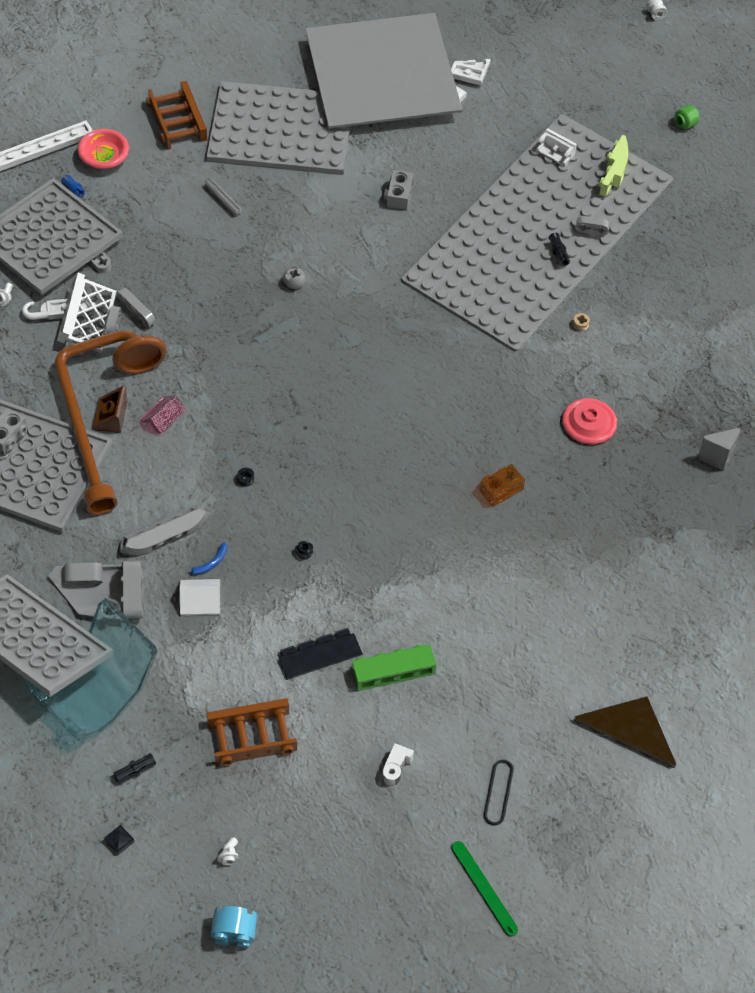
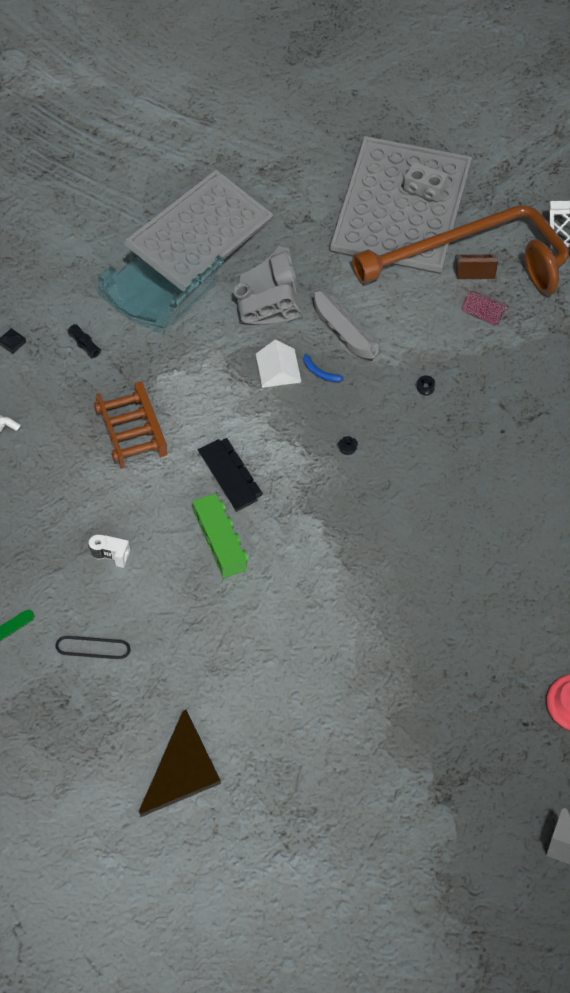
camera: 85 degrees right, 0 degrees up
(504, 488) = (462, 618): clear orange brick -> none

